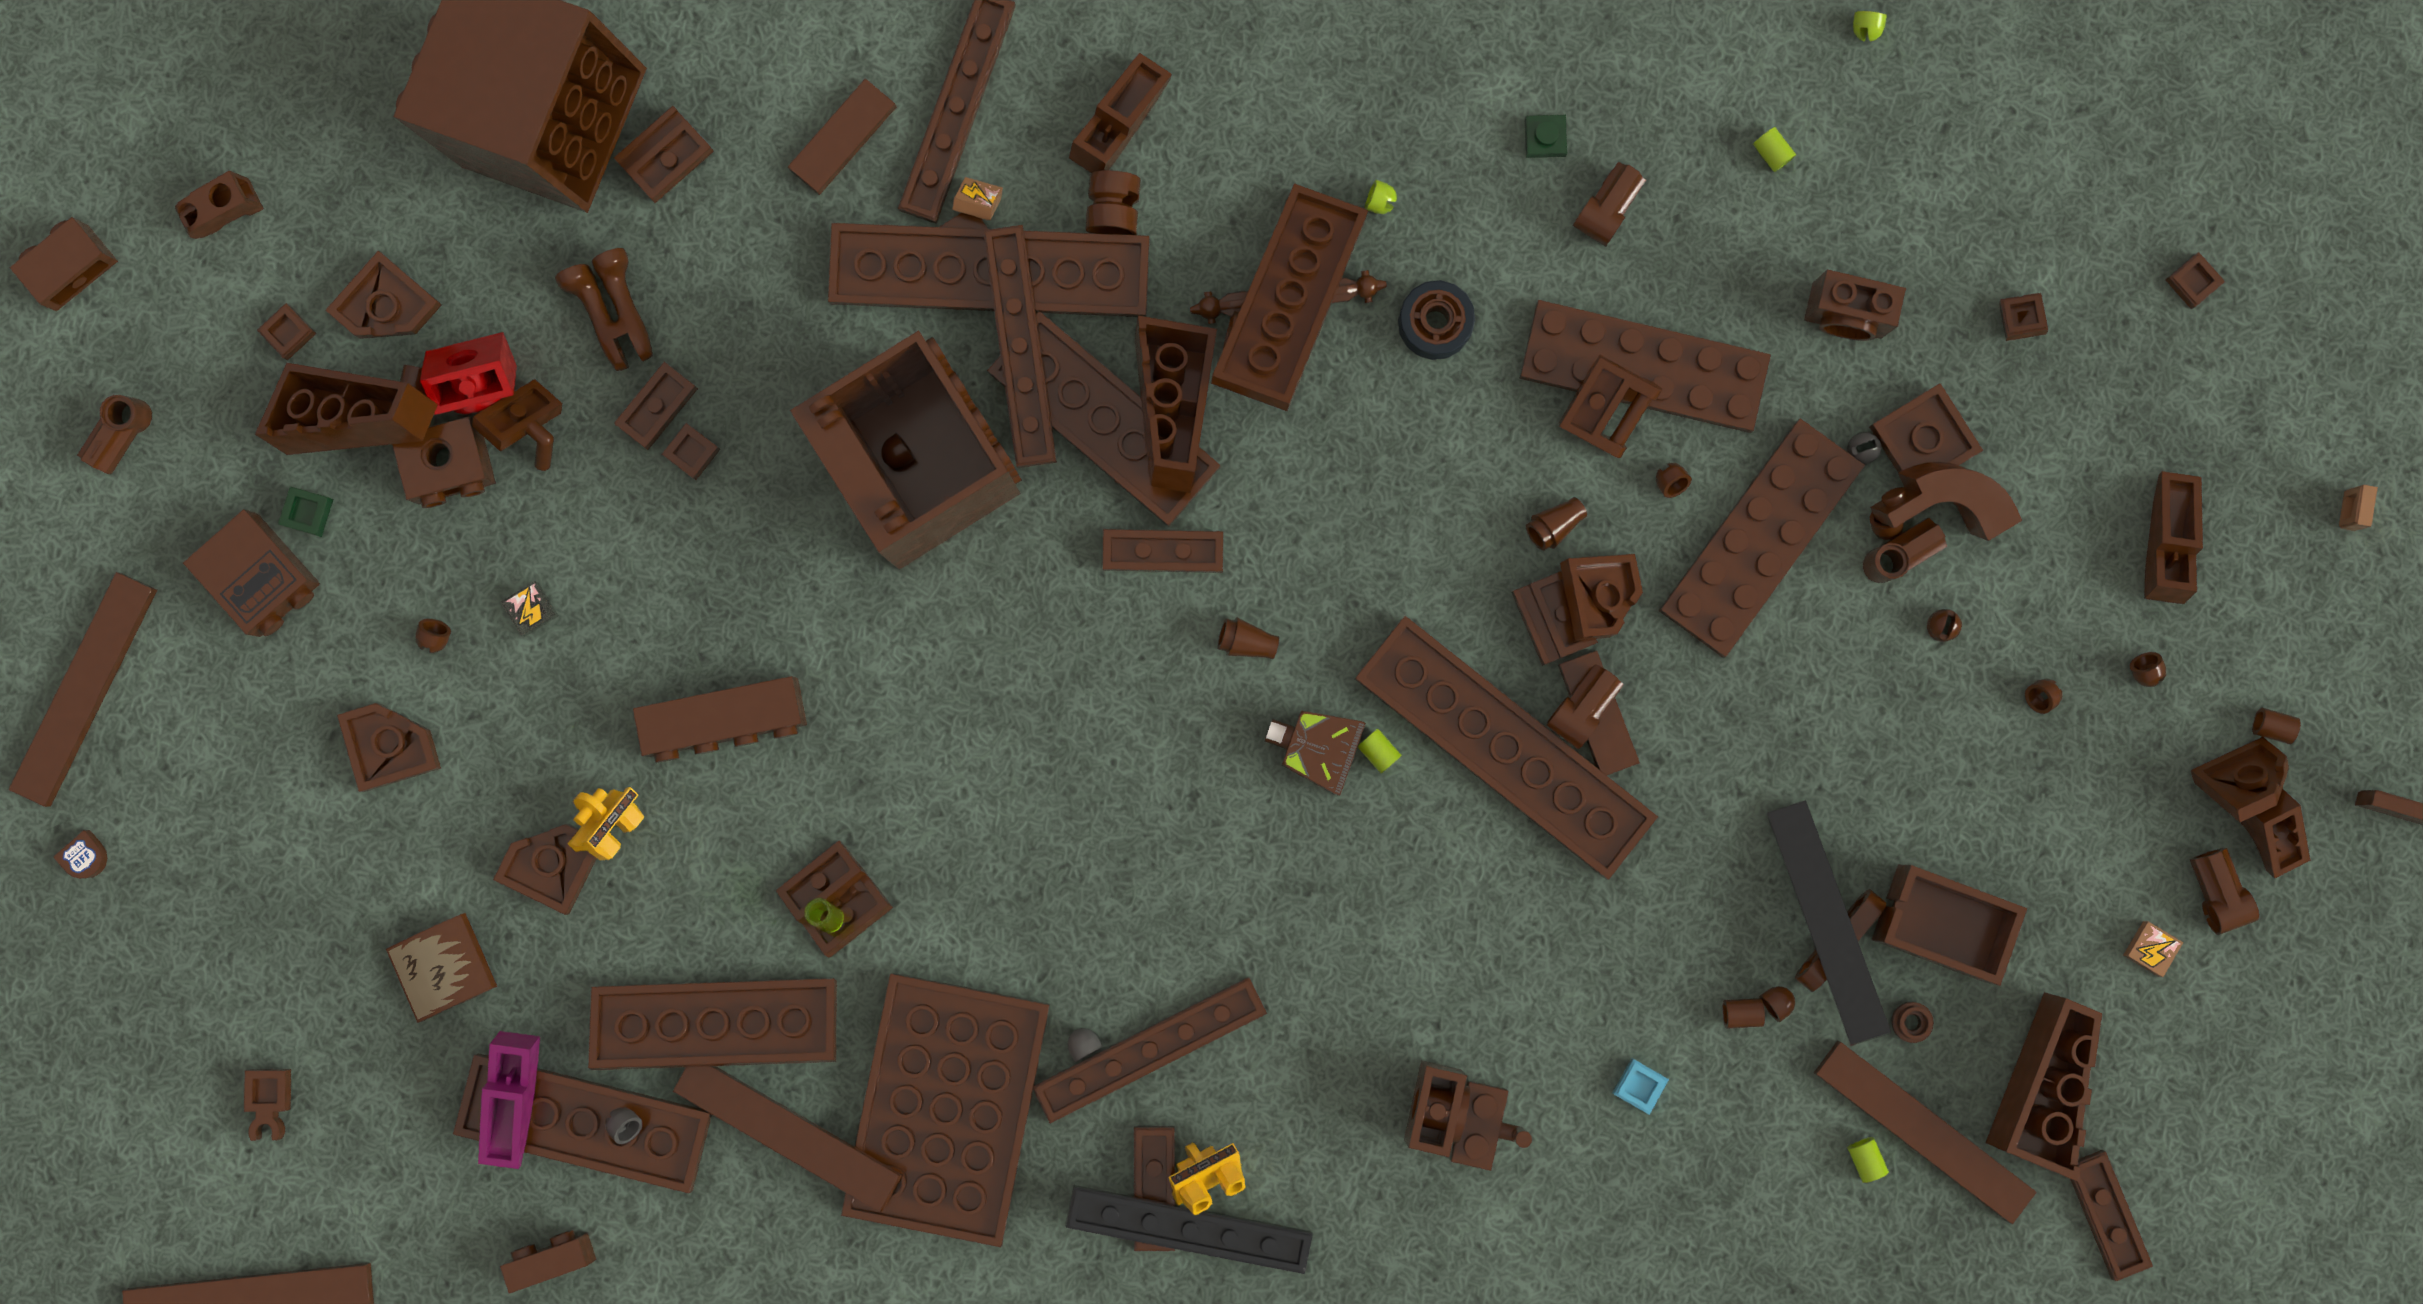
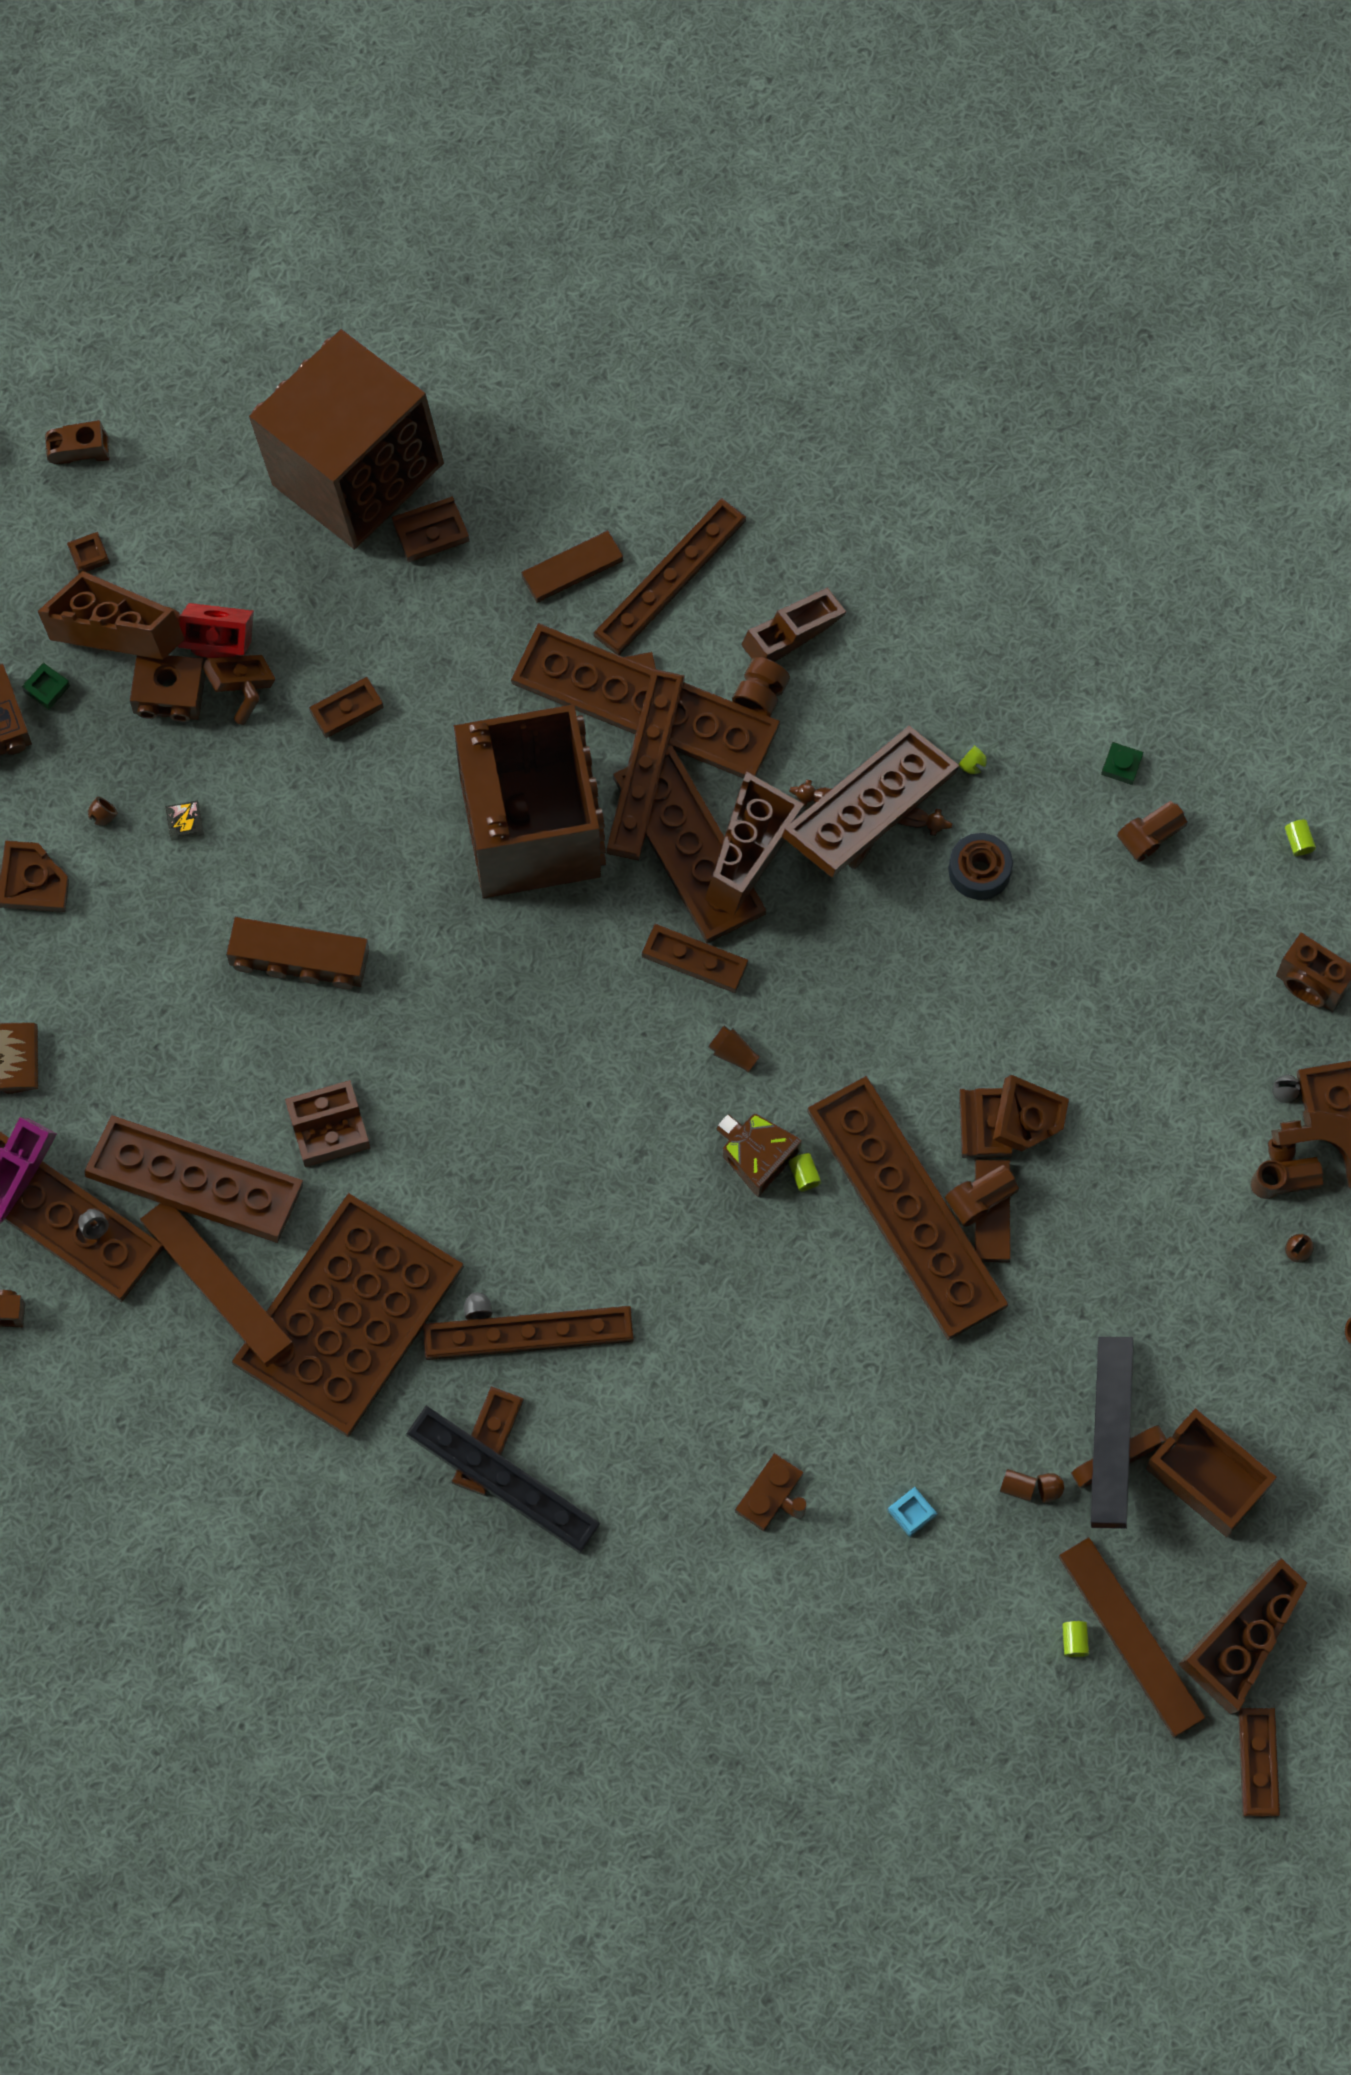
camera: 20 degrees right, 15 degrees down
(383, 302) = (171, 557): reddish brown plate -> none
(547, 868) = (119, 1014): reddish brown plate -> none
(582, 283) = (327, 596): reddish brown piece -> none
(599, 815) = (175, 987): yellow hips -> none
(691, 451) = (359, 750): reddish brown plate -> none
(816, 908) = (315, 1127): clear neon green hinge -> none
(977, 198) = (658, 647): medium nougat tile -> none
(1204, 1171) = (533, 1439): yellow hips -> none
(1437, 1109) = (739, 1455): reddish brown brick -> none
(1554, 524) = (1011, 1052): reddish brown cone -> none
(1598, 400) = (1083, 969): reddish brown plate -> none
(1673, 480) = (1123, 1062): reddish brown hinge -> none
(1697, 375) = (1133, 962): reddish brown plate -> none
(1761, 538) = (1176, 1126): reddish brown plate -> none
(1924, 1026) = (1162, 1538): reddish brown plate -> none

